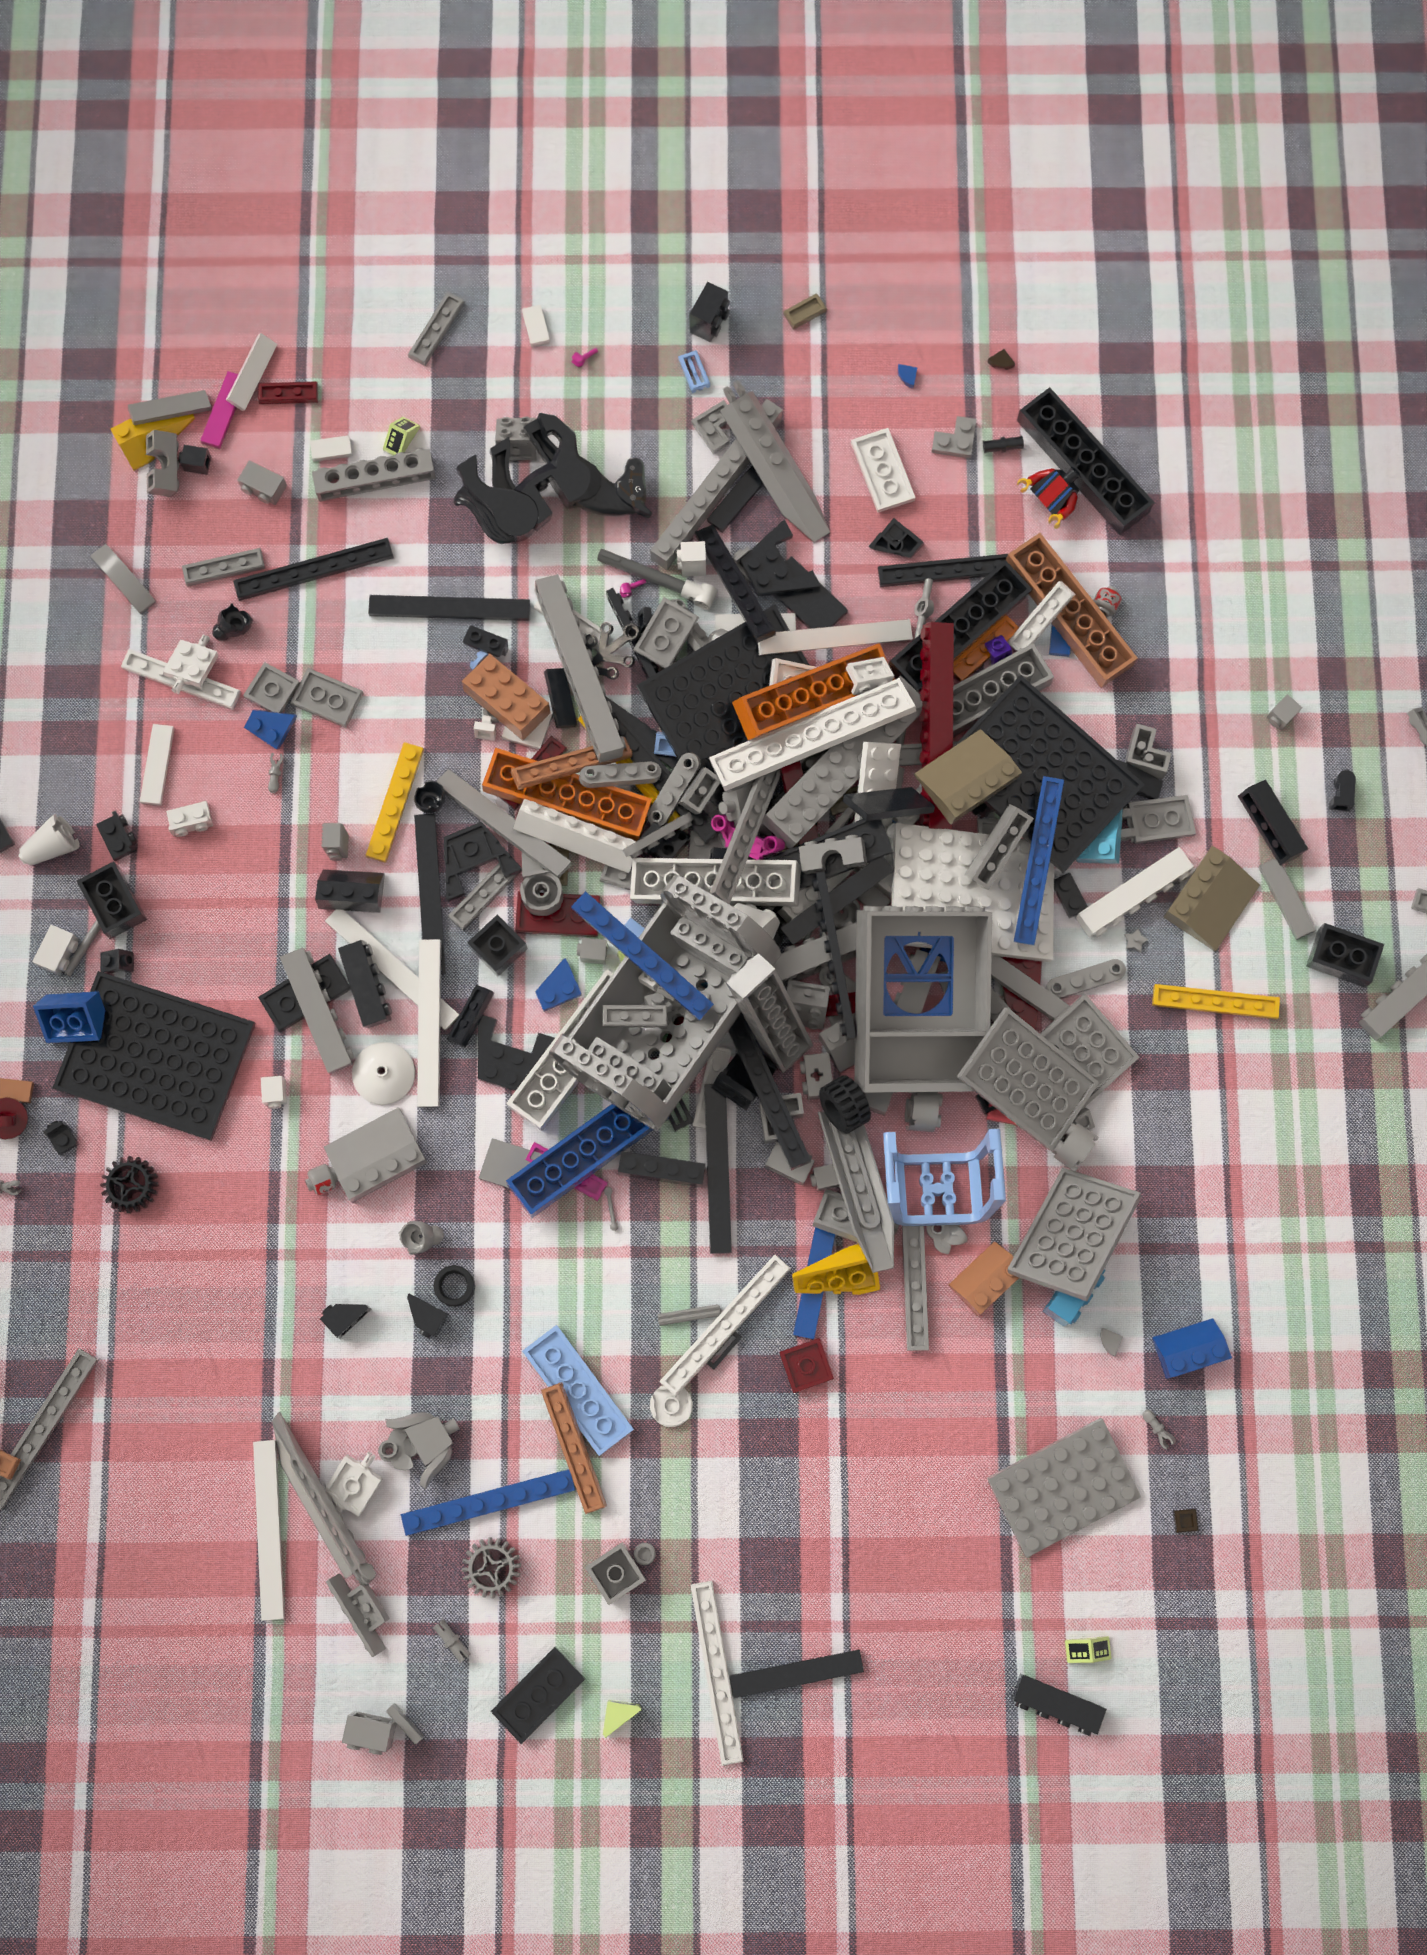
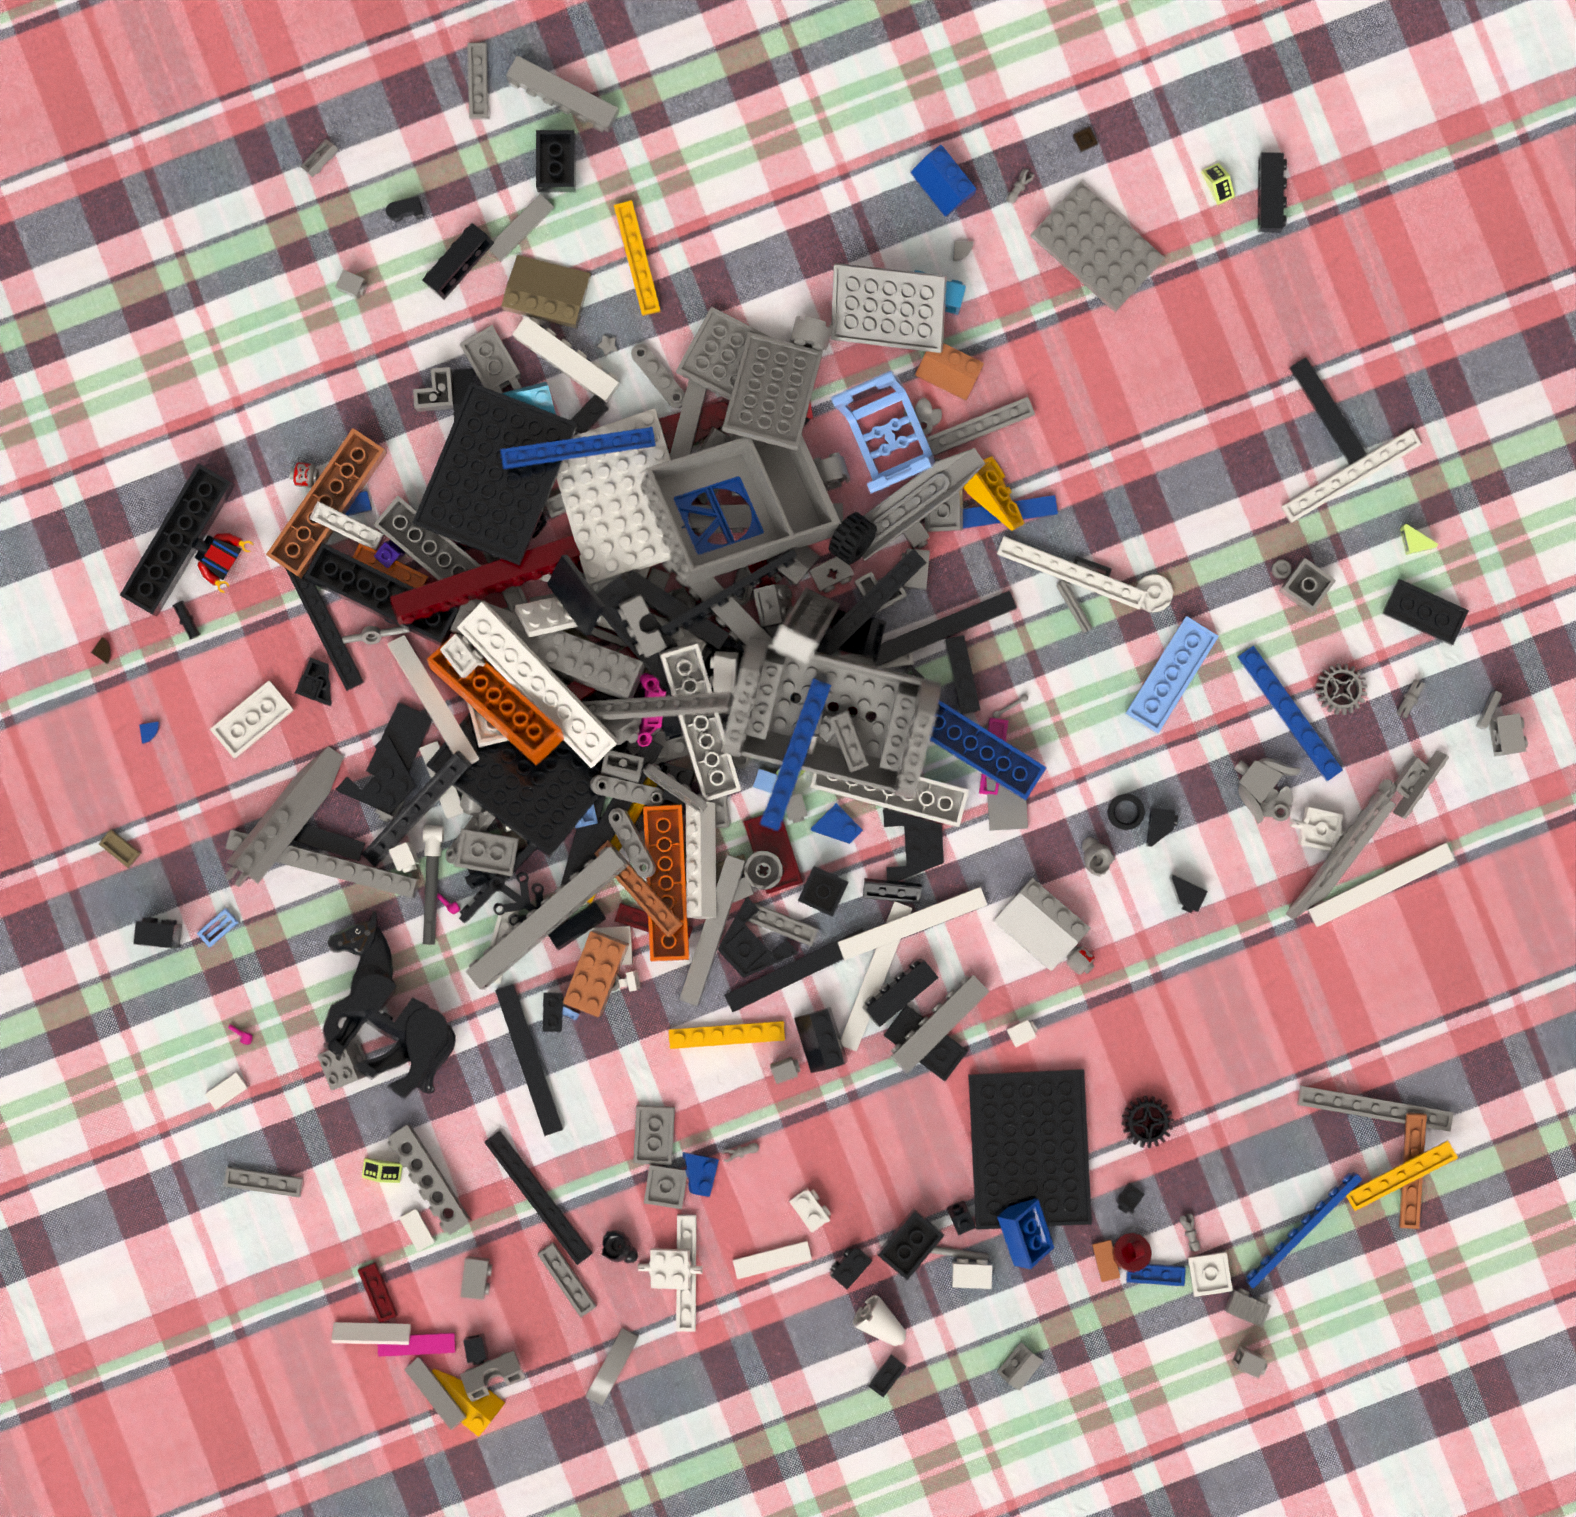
camera: 110 degrees left, 10 degrees up
(385, 1087) = (954, 945): white dish -> none
(429, 797) = (712, 1004): black hair -> none
(573, 1448) = (1220, 659): nougat tile -> none
(709, 427) = (266, 893): light grey plate -> none
(806, 1365) = (1079, 493): dark red plate -> none
(956, 444) = (197, 659): light grey plate -> none
(967, 775) = (525, 535): dark tan slope -> none
(999, 846) = (579, 486): light grey brick -> none
(1084, 1118) = (783, 334): light grey tile -> none

